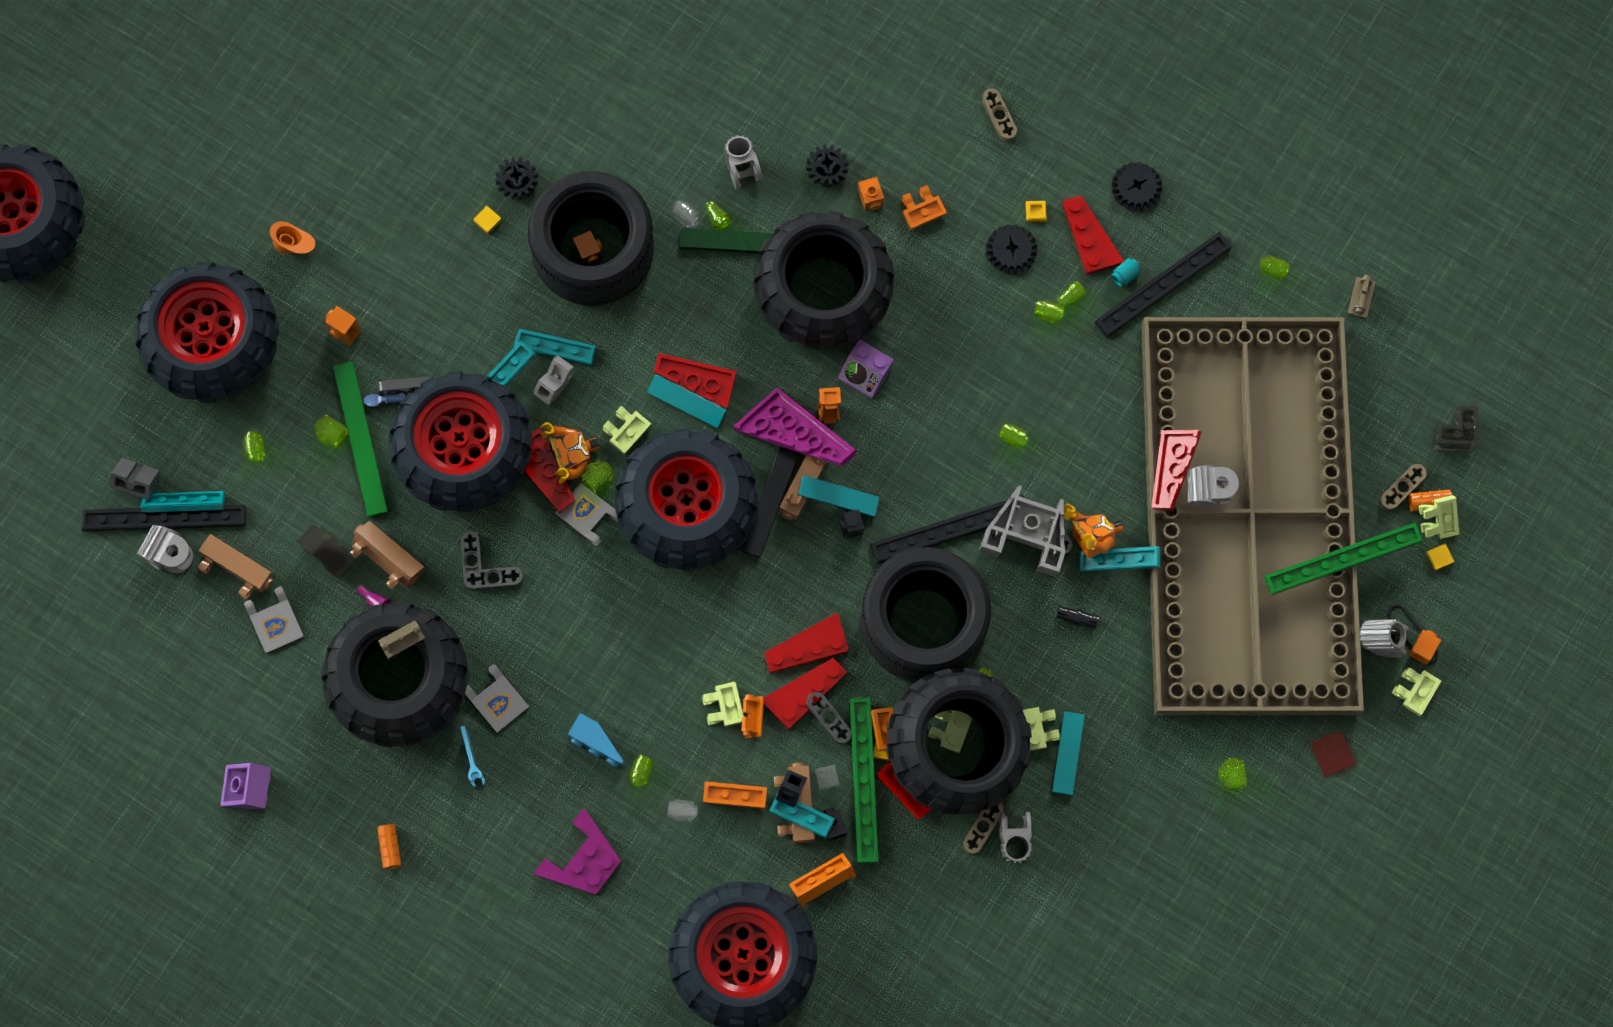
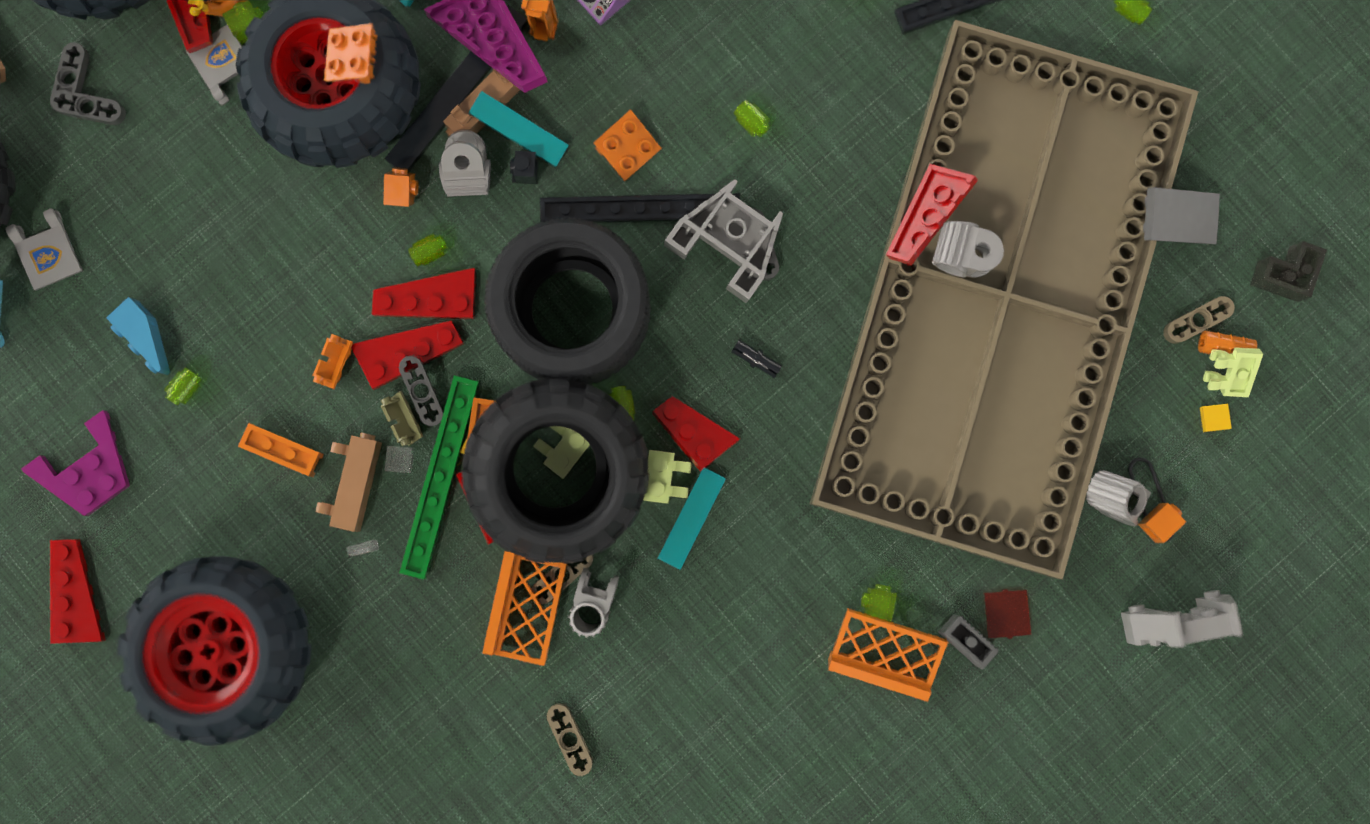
camera: 20 degrees right, 10 degrees up
(607, 964) = (71, 600): none -> red wing
(682, 810) = (215, 448): clear brick -> none
(711, 476) = (351, 53): none -> orange hinge
(729, 705) = (311, 338): yellowish green plate -> none
(761, 567) = (400, 187): none -> orange brick
(791, 788) = (341, 464): black brick -> none
(797, 609) = (427, 249): none -> clear neon green brick
(804, 817) = (347, 499): teal tile -> none
(807, 535) = (465, 165): none -> light grey piece
(821, 743) = (407, 429): none -> olive hinge
(822, 852) = (362, 548): none -> clear tile
(822, 879) = (350, 580): orange container -> none
(839, 829) = (393, 525): black brick -> none
(924, 484) = (627, 145): none -> orange hinge
(945, 859) = (502, 608): none -> orange fence
(1021, 951) = (584, 754): none -> dark tan beam
(1048, 687) = (694, 433): none -> red wing
(1092, 533) = (807, 263): orange torso -> none
(1122, 559) = (829, 305): teal tile -> none
(1246, 826) = (884, 675): none -> orange fence
(1309, 780) = (968, 641): none -> dark grey brick
(1343, 559) = (1100, 387): green tile -> none
(1361, 296) = (1226, 73): dark tan hinge -> none
(1362, 413) = (1181, 216): none -> tile
(1421, 692) = (1136, 576): yellowish green plate -> none
(1451, 720) = (1212, 618): none -> light grey wedge

